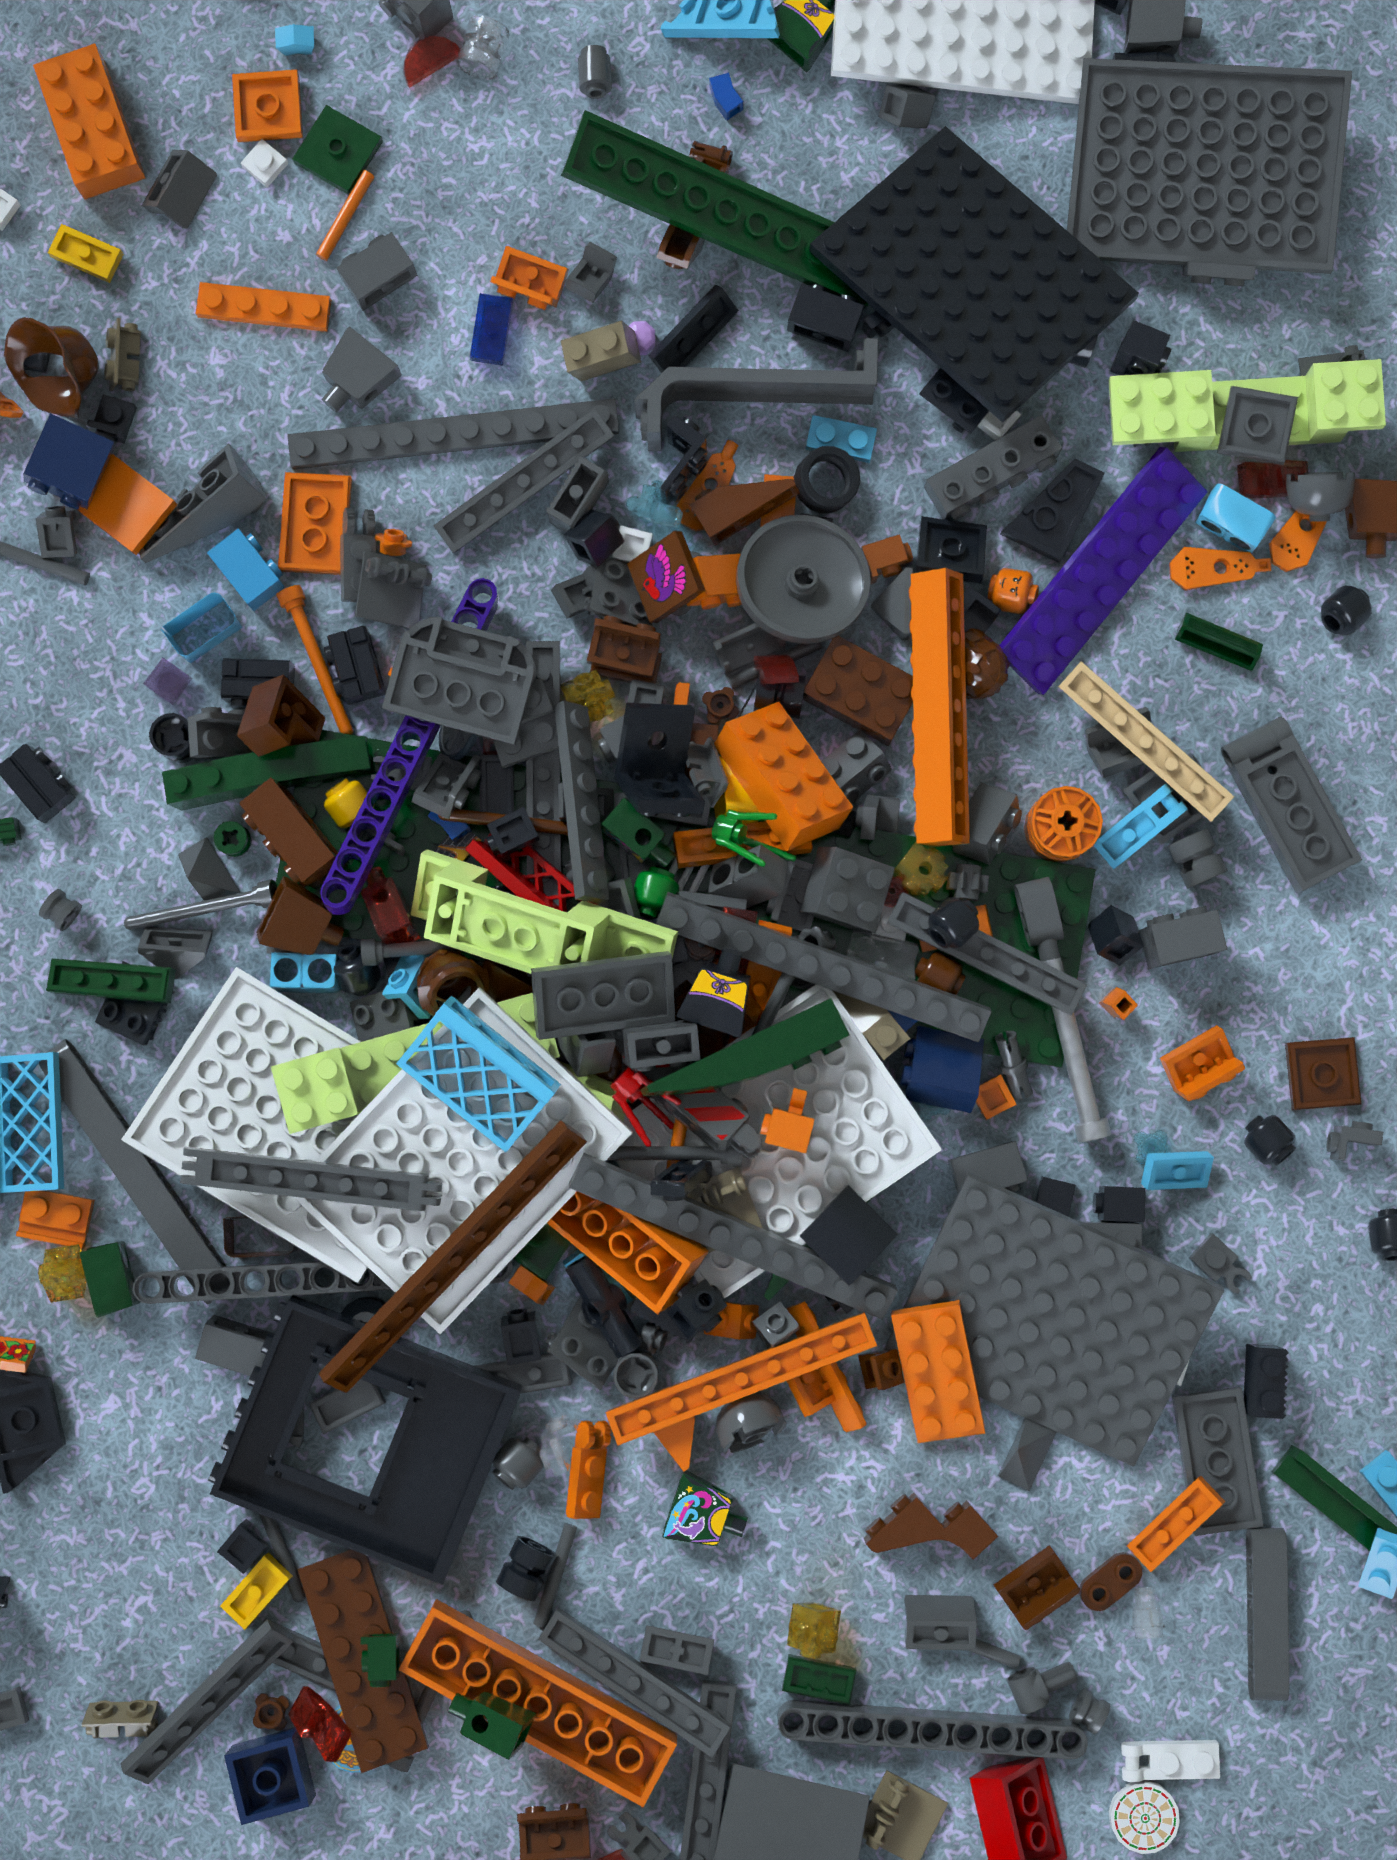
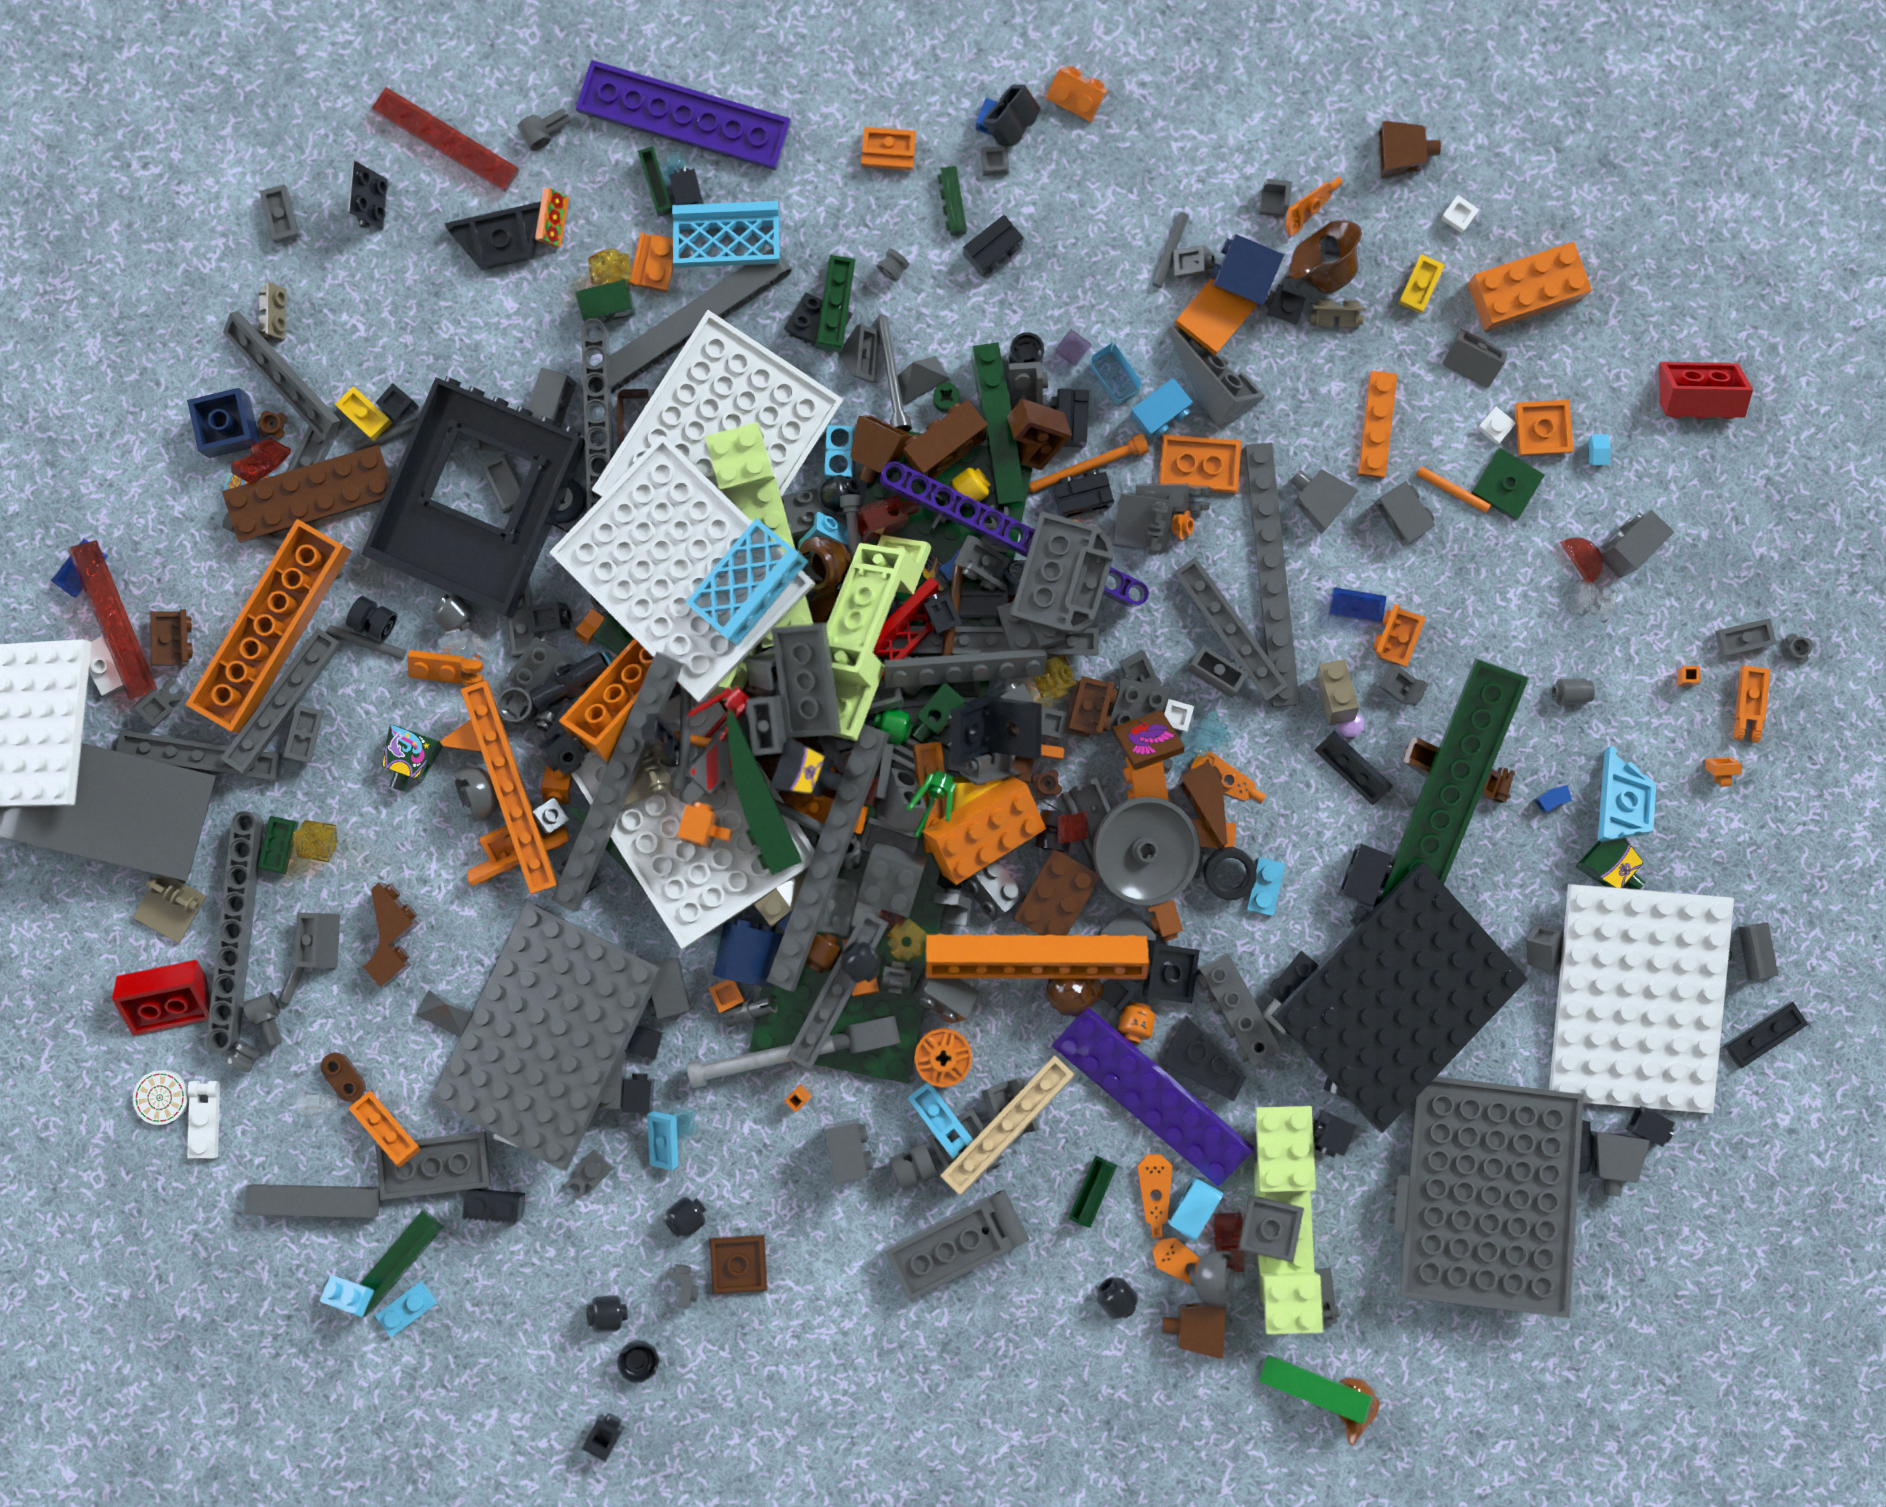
camera: 85 degrees right, 0 degrees up
(309, 1179) = (669, 452): dark grey hinge -> none
(381, 1658) = (306, 506): dark green brick -> none
(453, 1257) = (607, 562): reddish brown plate -> none
(506, 1724) = (252, 589): dark green torso -> none
(595, 537) = (1182, 684): black brick -> none
(685, 437) = (1244, 765): black bracket -> none
(755, 386) = (1308, 749): dark grey panel -> none
(848, 1235) = (616, 872): black slope -> none
(881, 1369) = (513, 899): reddish brown bracket -> none
(938, 1371) = (510, 943): orange plate -> none
(1037, 1588) = (339, 1017): reddish brown bracket -> none
(1115, 935) = (853, 1097): black panel -> none
(1201, 1064) = (747, 1164): orange bracket -> none

